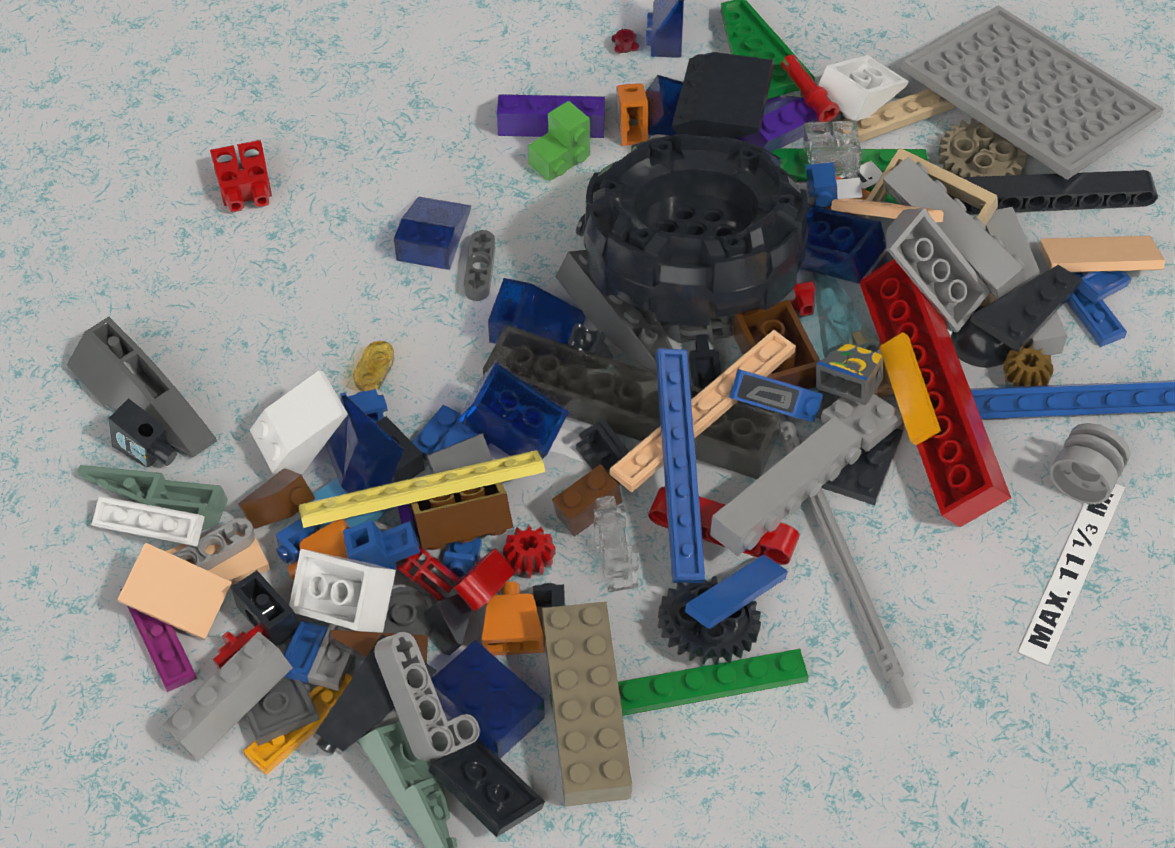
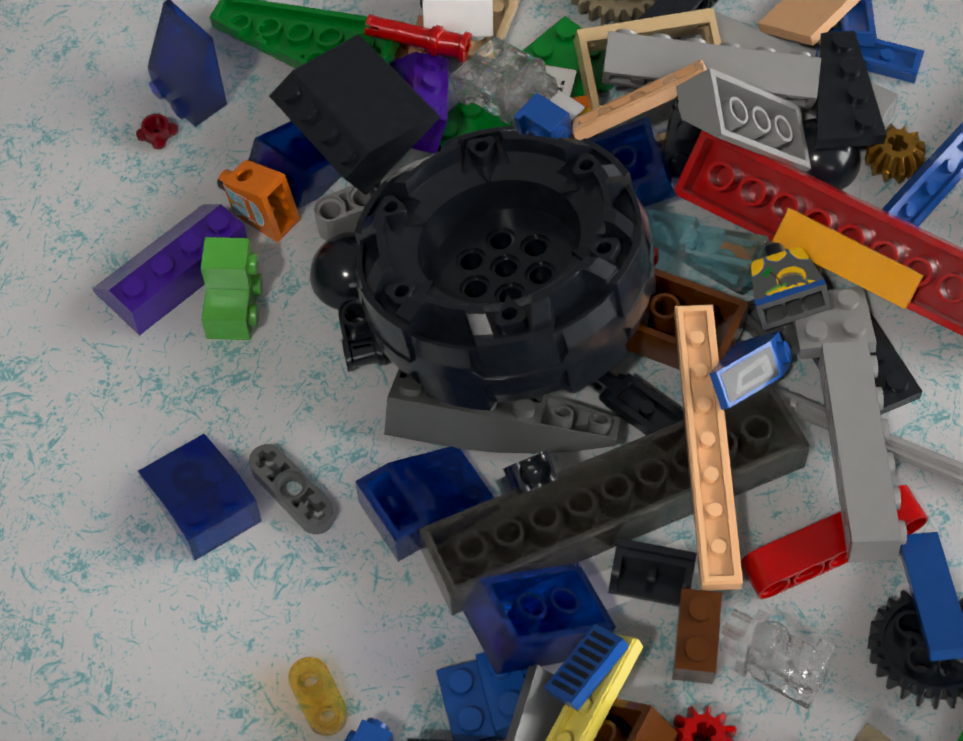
camera: 45 degrees left, 5 degrees up
(503, 454) = (586, 667): none -> blue tile
(680, 466) = (759, 519): blue tile -> none

